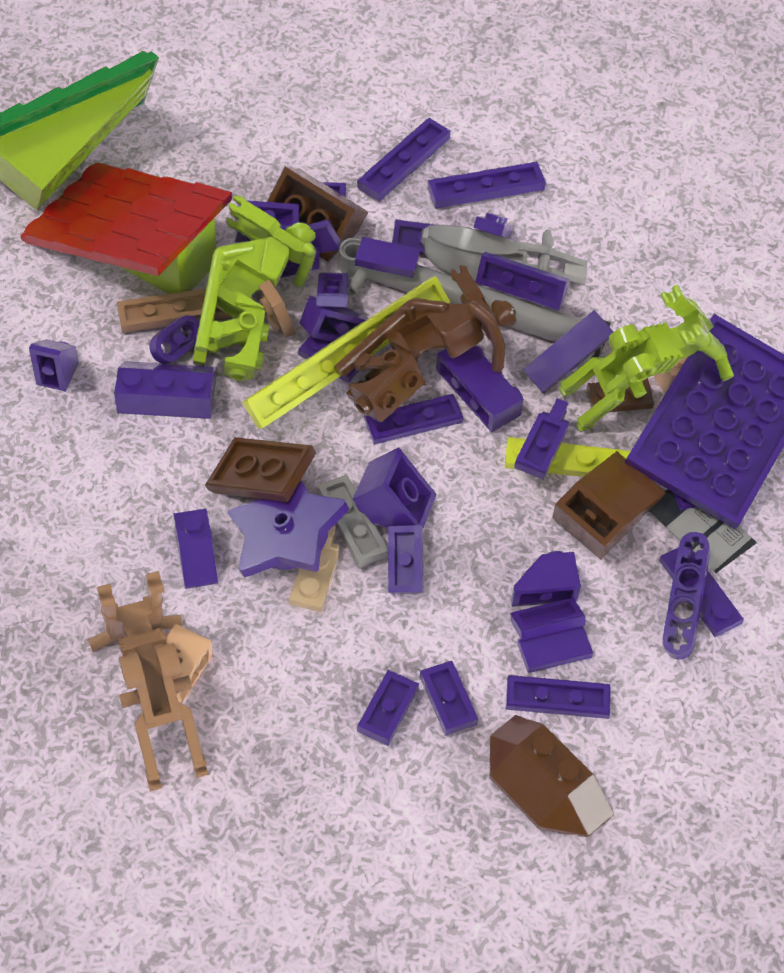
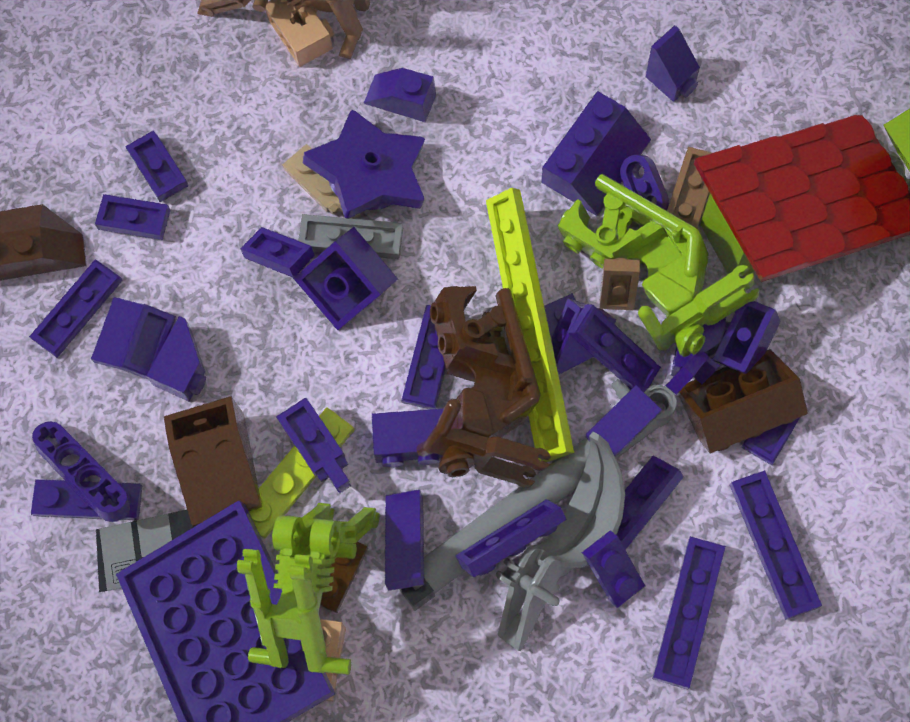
camera: 130 degrees right, 15 degrees up
(261, 469) = (444, 180): reddish brown tile -> none

